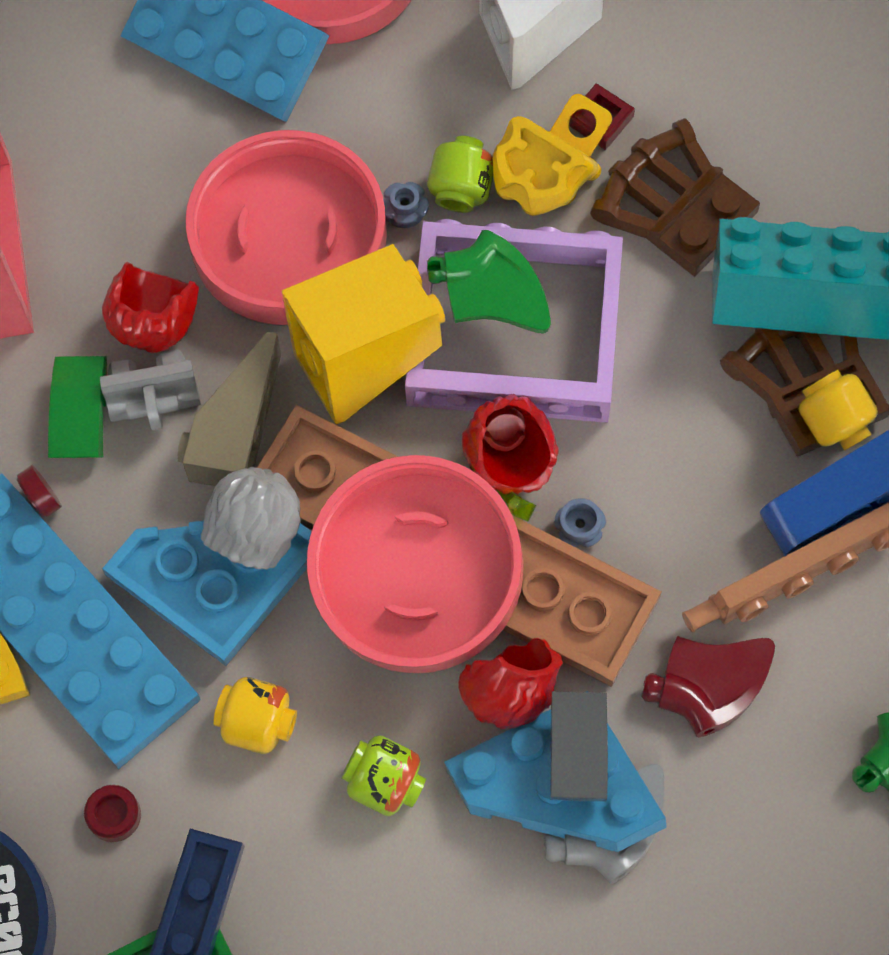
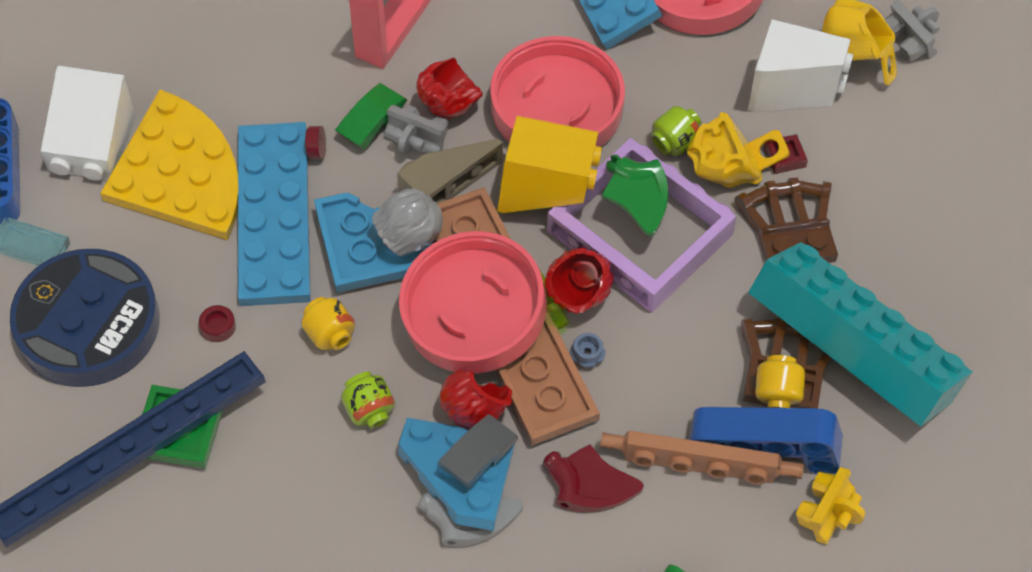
camera: 35 degrees right, 10 degrees down
(407, 215) = (638, 134): sand blue plate -> none

